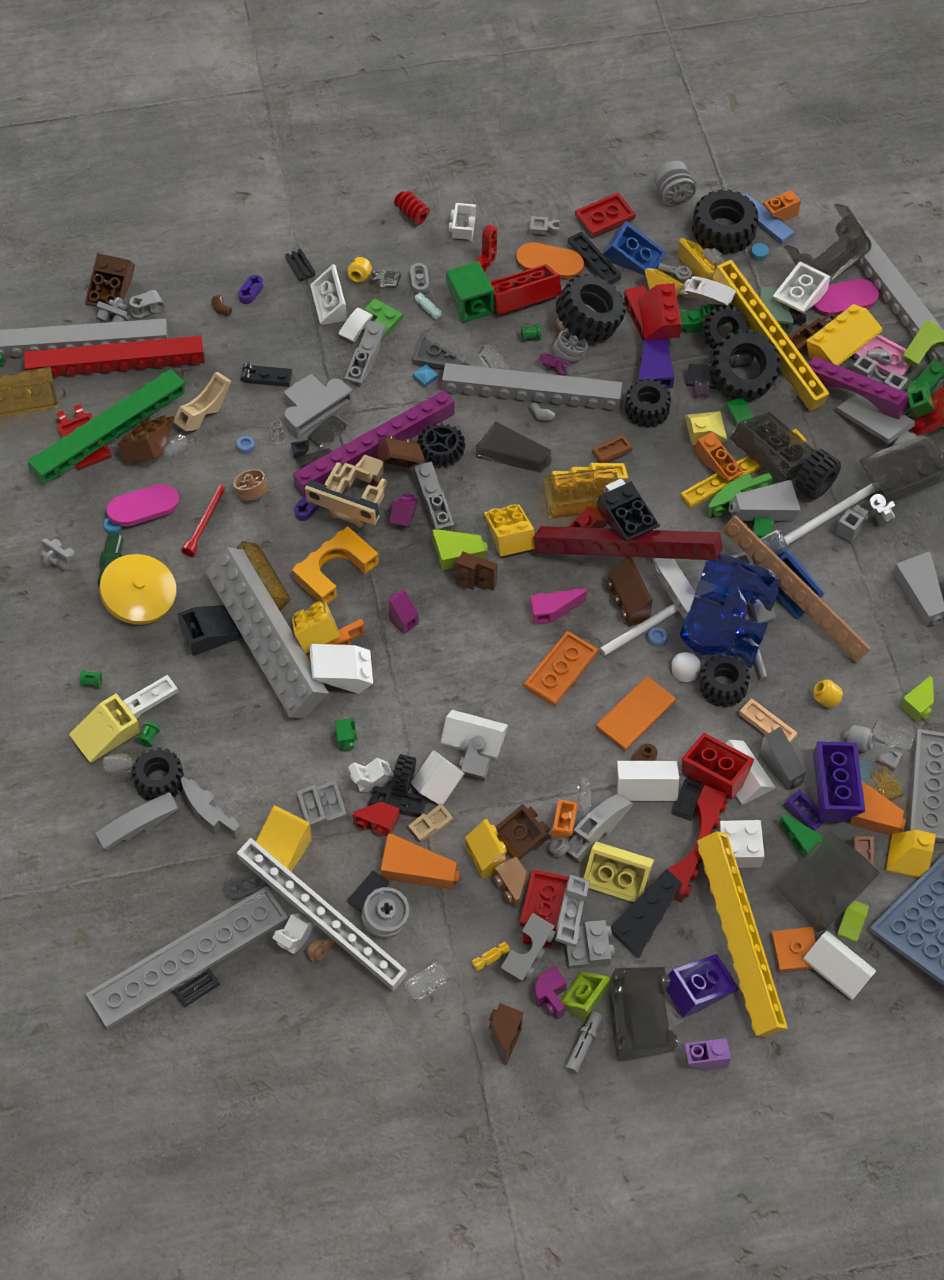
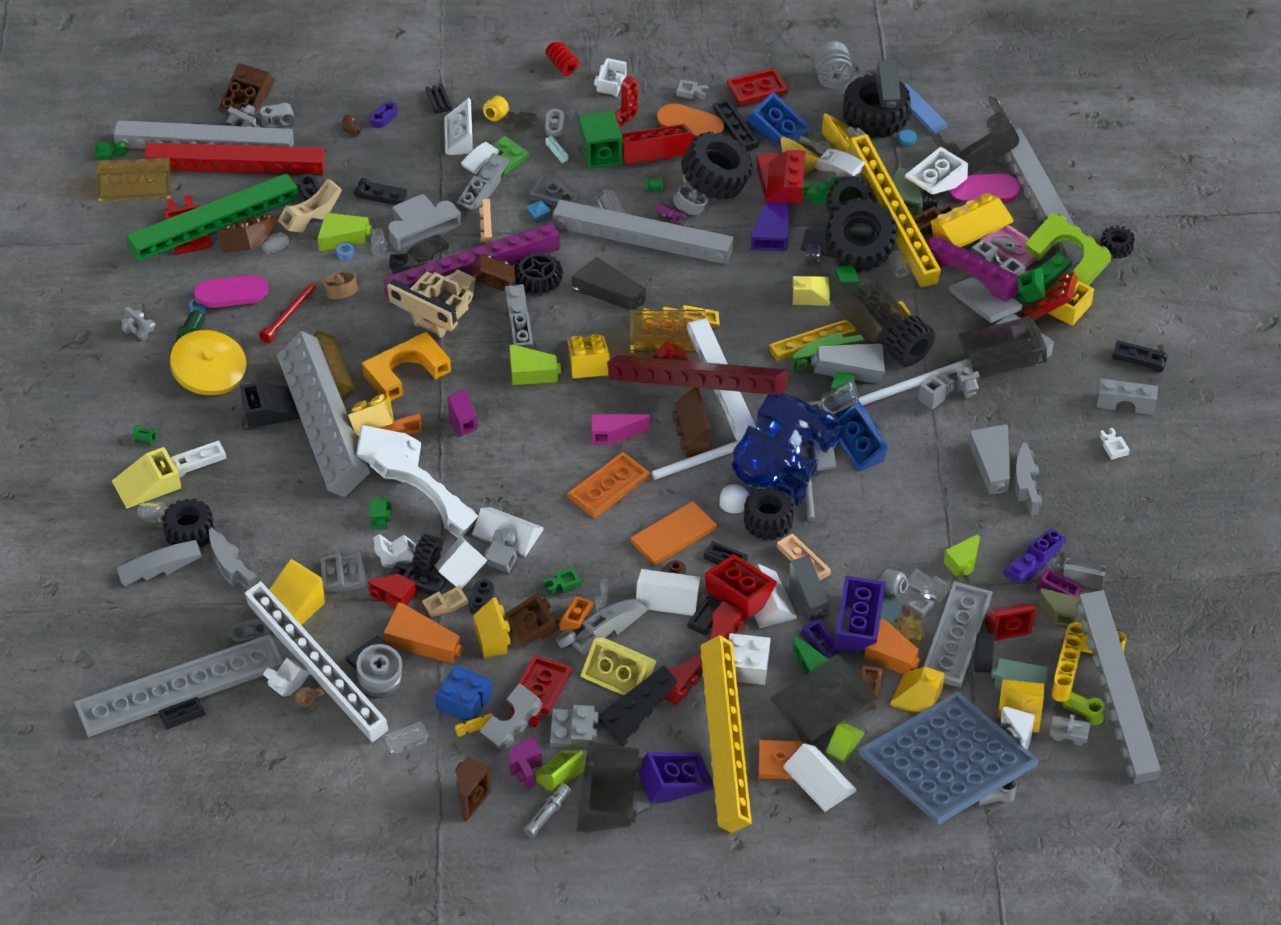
camera: 10 degrees right, 10 degrees down
(148, 734) = (188, 489): green bush -> none
(195, 382) = (308, 186): none -> black plate
(239, 422) = (343, 229): none -> lime slope
(301, 506) = (390, 313): dark purple beam -> none
(353, 684) = (394, 465): none -> white arch
(378, 397) = (485, 223): none -> light nougat plate
(404, 509) = (486, 325): magenta slope -> none
(465, 810) = (482, 593): none -> black plate
(473, 925) = (460, 692): none -> blue piece
(474, 570) = (542, 386): reddish brown plate -> none
(512, 879) = (512, 659): medium nougat slope -> none
(542, 414) = (647, 258): light grey arm -> none
(542, 781) = (564, 579): none -> green plate
(571, 909) = (563, 691): light grey slope -> none
(612, 449) = (709, 297): dark orange plate -> none
(626, 512) = (700, 343): black slope -> none
(648, 392) = (755, 259): black tyre -> none
(657, 637) = (712, 469): medium blue tile -> none
(689, 734) = (717, 557): none -> black tile
(708, 1054) = (666, 835): medium lavender slope -> none
(717, 457) = (812, 314): orange slope -> none
(737, 201) = (888, 83): none -> dark grey slope
(783, 206) = (941, 98): orange slope -> none
(797, 589) = (861, 440): medium nougat plate -> none
(827, 693) = (870, 538): yellow head -> none

